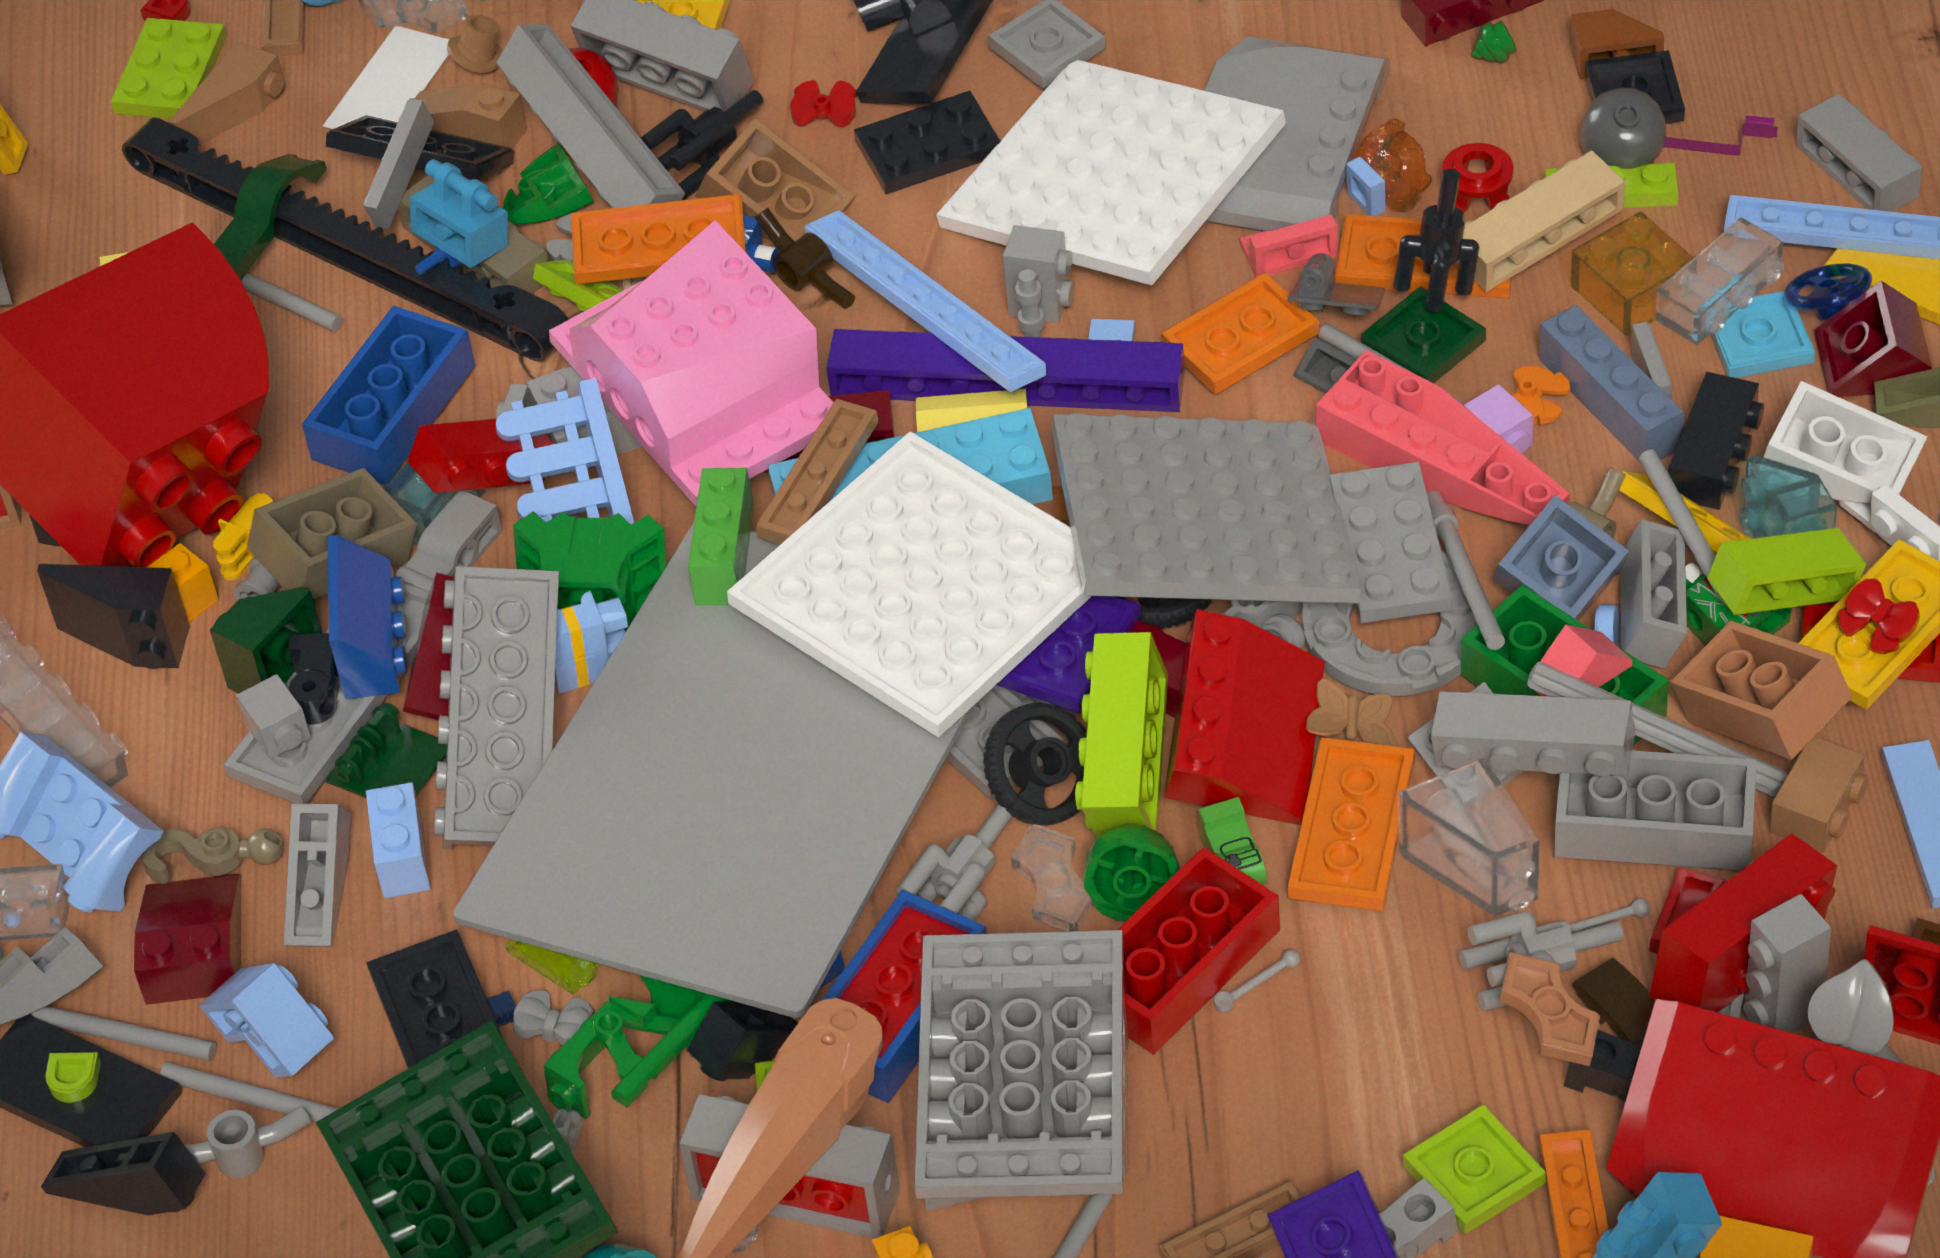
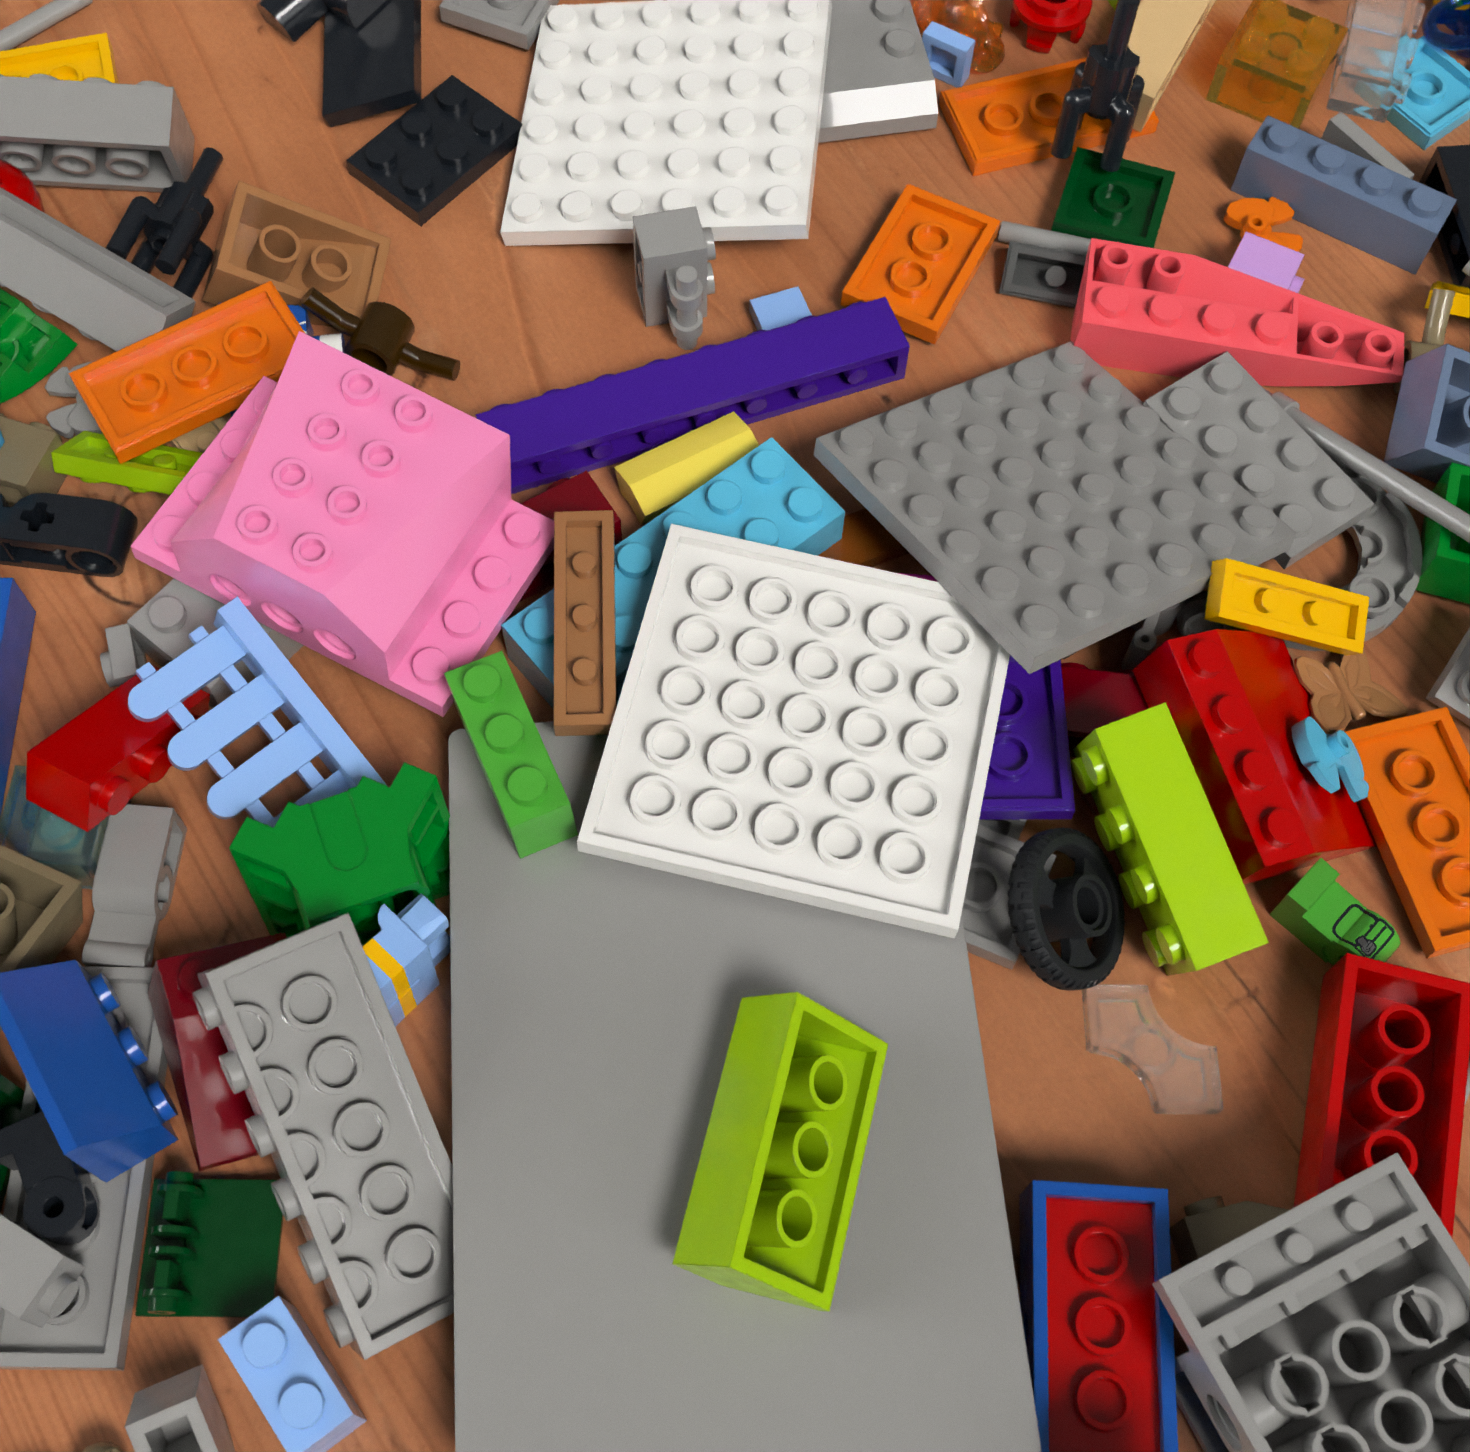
camera: 35 degrees left, 15 degrees up
(751, 802) = (783, 1152): none -> lime slope
(810, 104) = (276, 148): red piece -> none
(928, 302) = (570, 344): light blue tile -> none
(958, 870) = (1055, 1109): light grey plant -> none
(1127, 869) = (1255, 1006): green cylinder -> none
(1276, 727) = (1329, 758): none -> medium azure piece
(1290, 246) = (895, 156): coral panel -> none
(1317, 289) = (986, 183): dark grey hinge -> none
(1321, 633) = (1286, 607): none -> yellow plate

